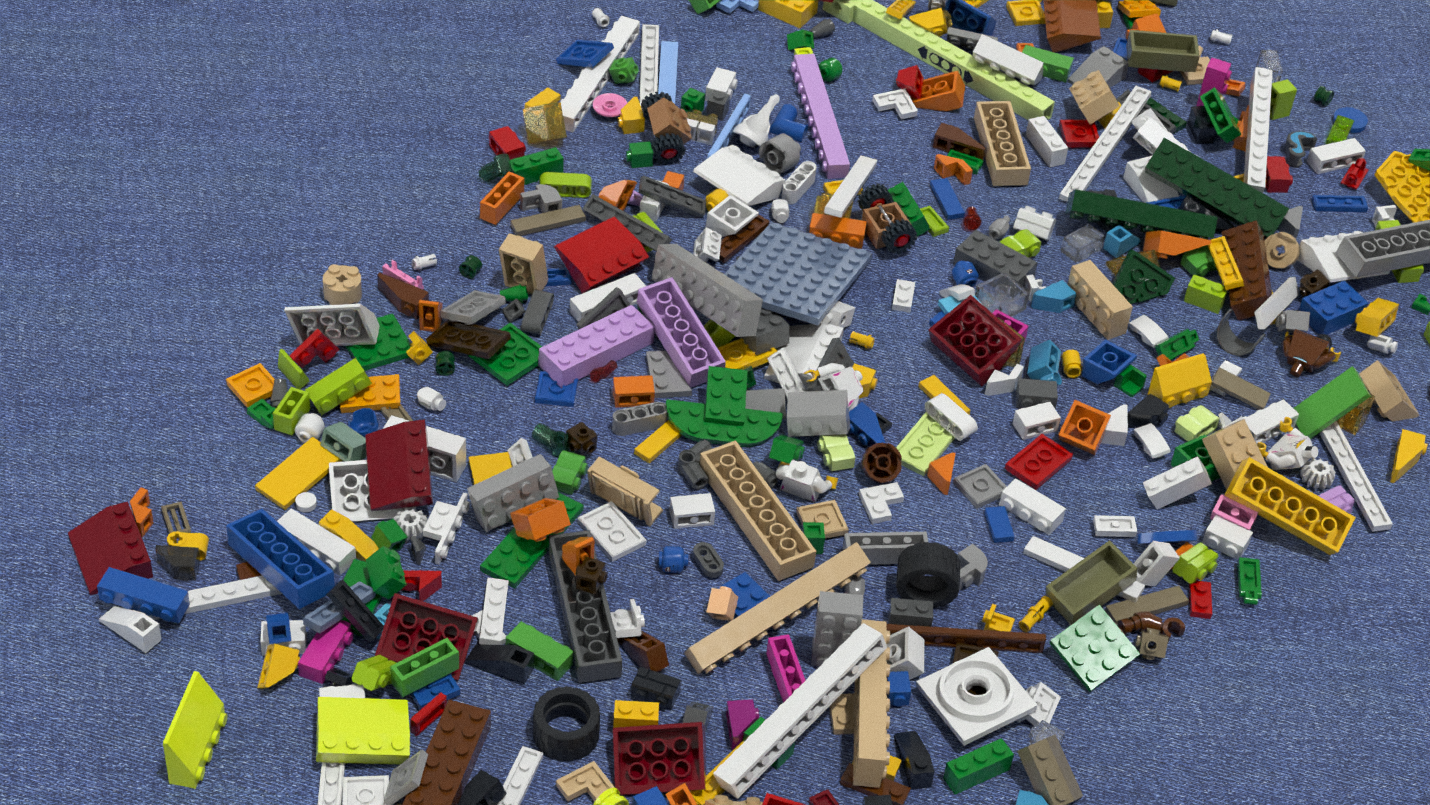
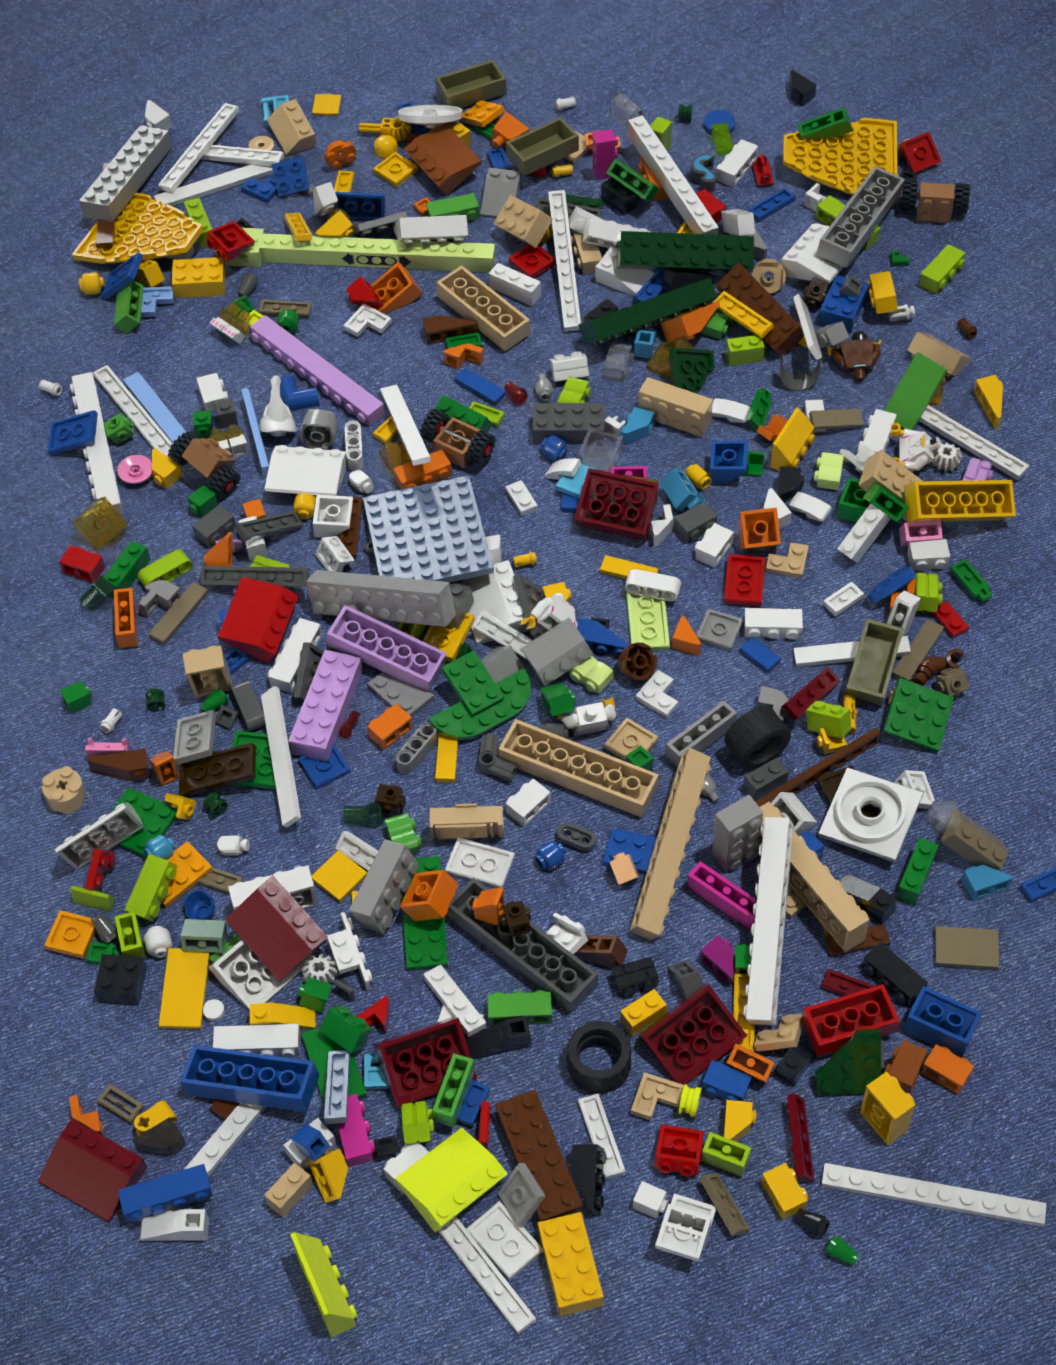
camera: 30 degrees left, 10 degrees up
(236, 657) = (288, 1190): none -> tan brick
(257, 436) = (120, 979): none -> black brick
(355, 610) = (357, 1081): black plate -> none
(373, 365) = (159, 847): none -> dark azure head
(414, 230) = (76, 697): none -> green brick
(524, 358) = (280, 757): none -> white tile
(545, 97) = (72, 500): yellow tile -> none
(631, 171) = (214, 526): none -> dark grey brick
(784, 46) = (230, 324): none -> hips
(849, 67) = (272, 308): none -> dark tan tile
(1009, 601) = (833, 718): none -> lime brick
(1011, 575) = (810, 693): none -> dark red plate
(1093, 476) = (789, 566): none -> tan plate
(1130, 150) = (587, 254): none -> tan slope
(1213, 465) = (885, 502): none -> green brick
(1288, 194) = (738, 222): none -> white brick
(1347, 294) = (851, 287): none -> dark grey slope

